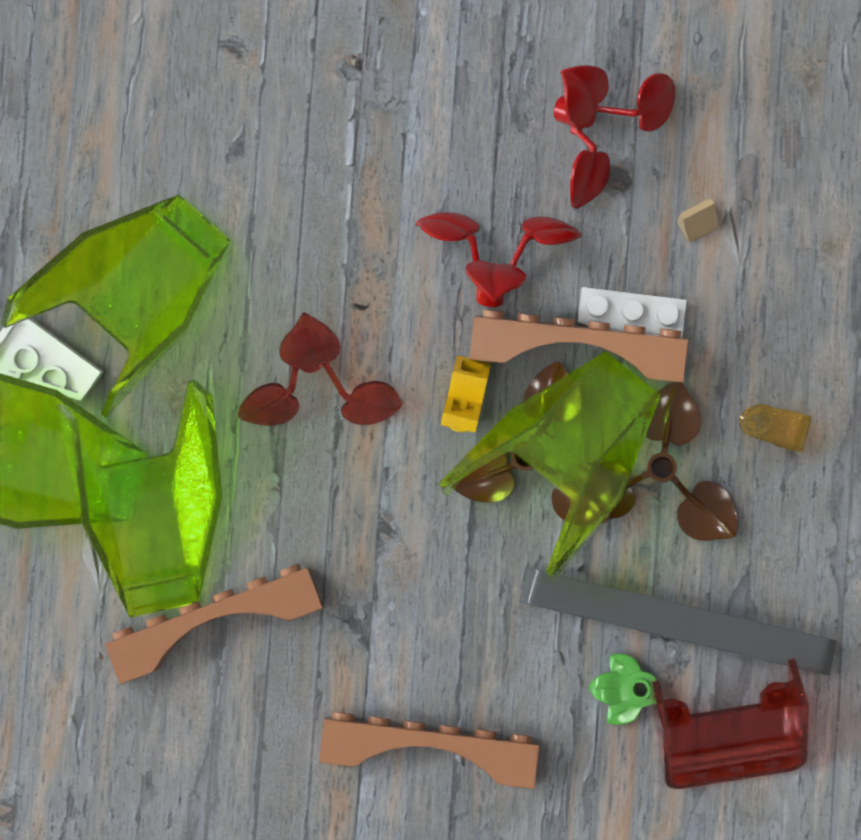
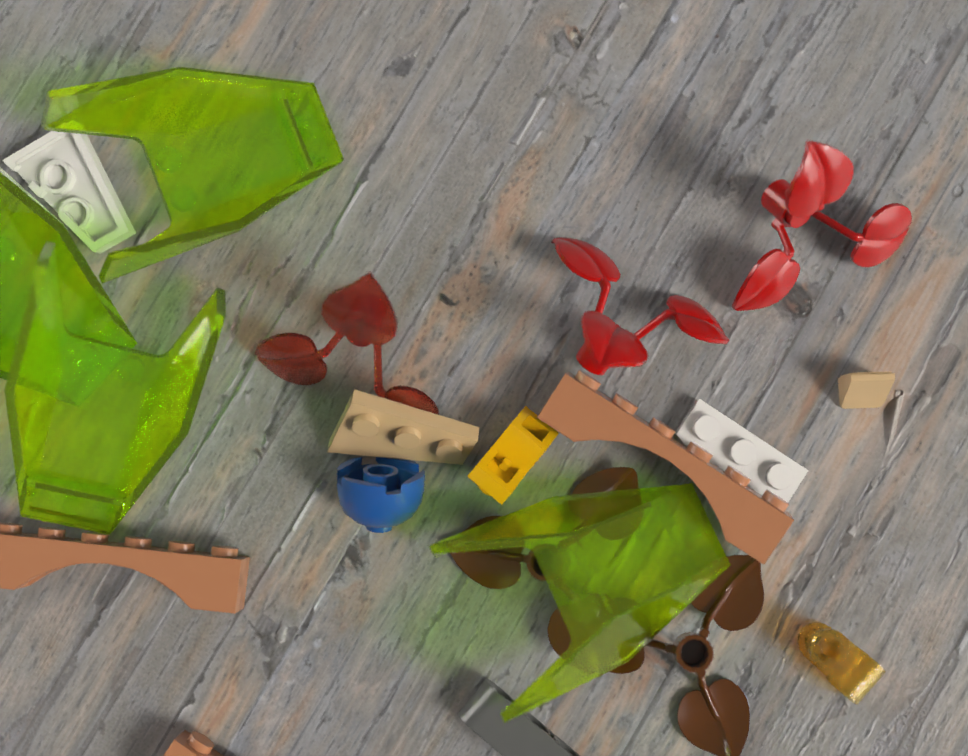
camera: 25 degrees right, 0 degrees up
(374, 419) = (400, 431): none -> tan wing
(383, 470) = (381, 492): none -> blue cylinder

